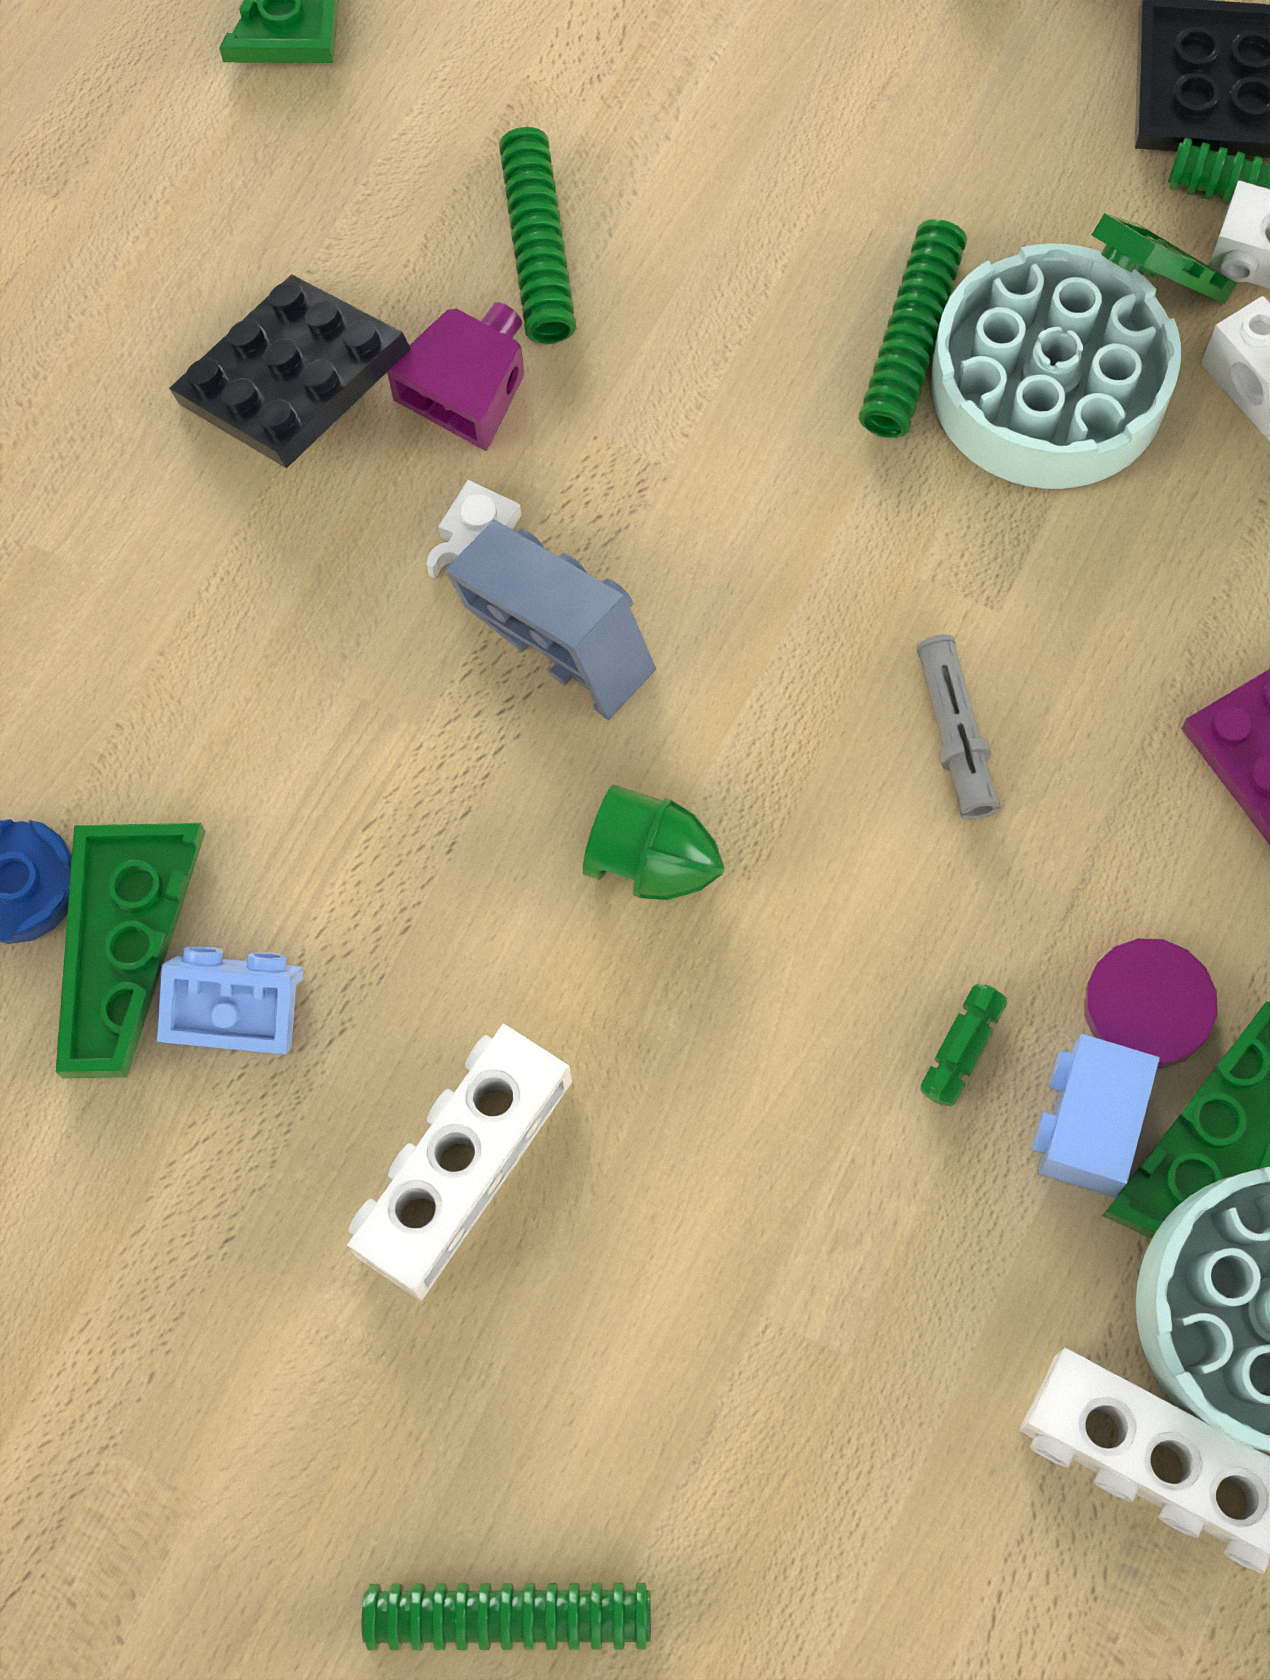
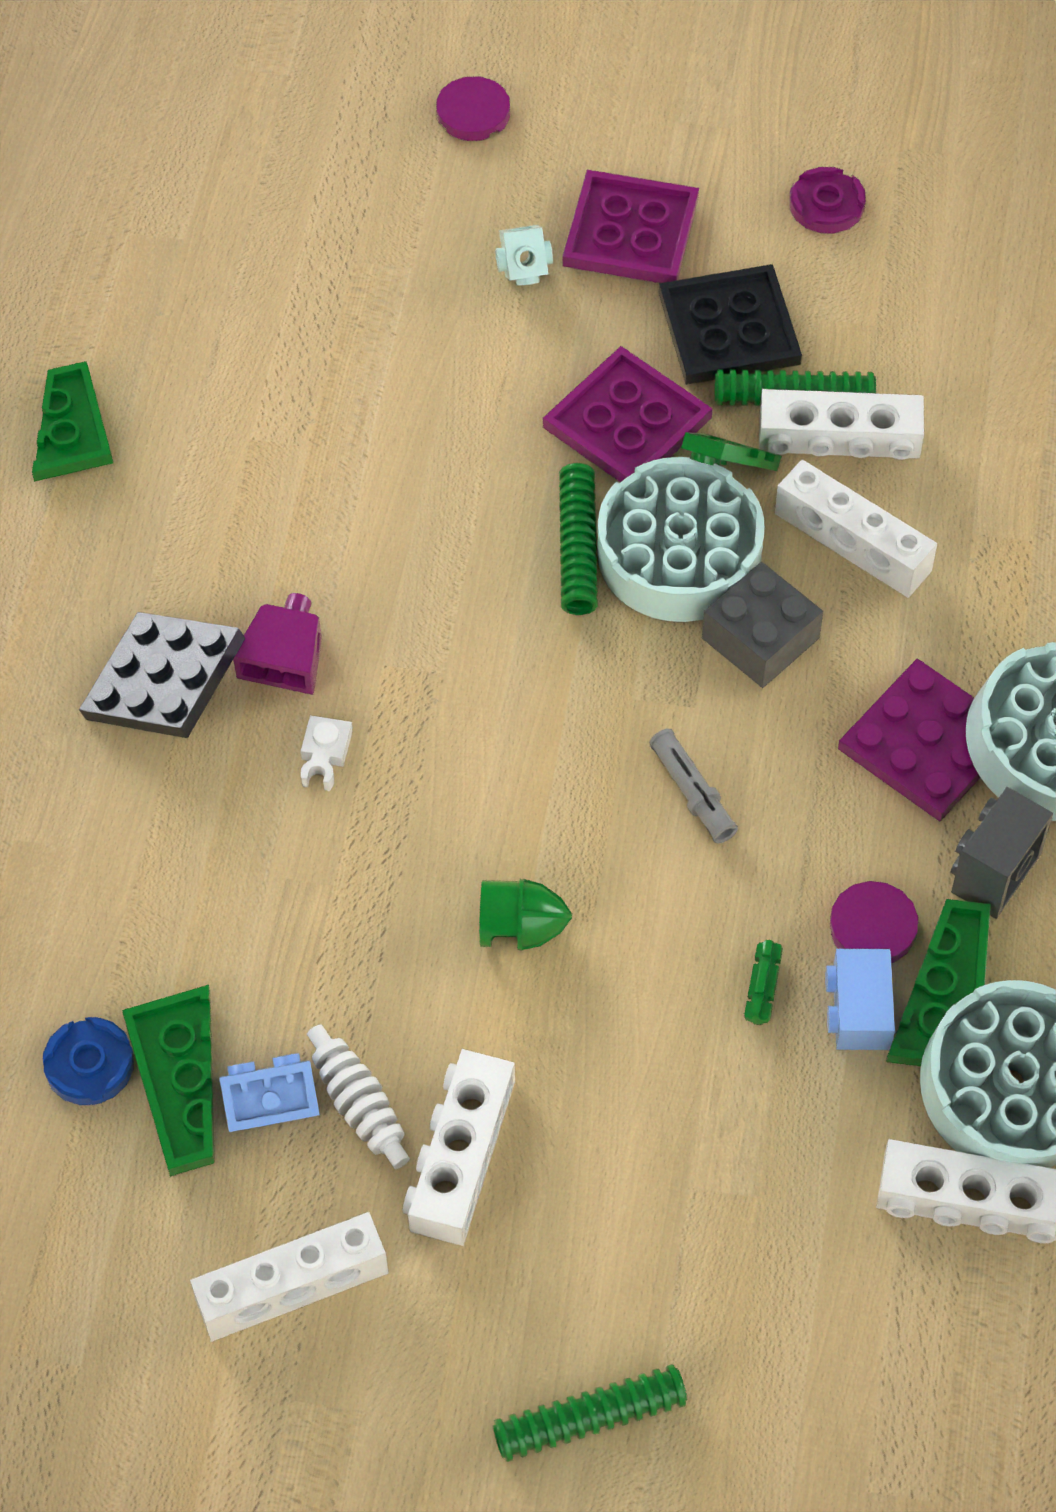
camera: 20 degrees left, 10 degrees down
(161, 1279) = (290, 1276): none -> white brick
(346, 1043) = (358, 1096): none -> white piece
(537, 236) = (301, 543): green piece -> none
(556, 610) = (401, 781): sand blue wedge -> none
(1037, 170) = (626, 415): none -> magenta plate
(1130, 519) = (762, 624): none -> dark grey brick

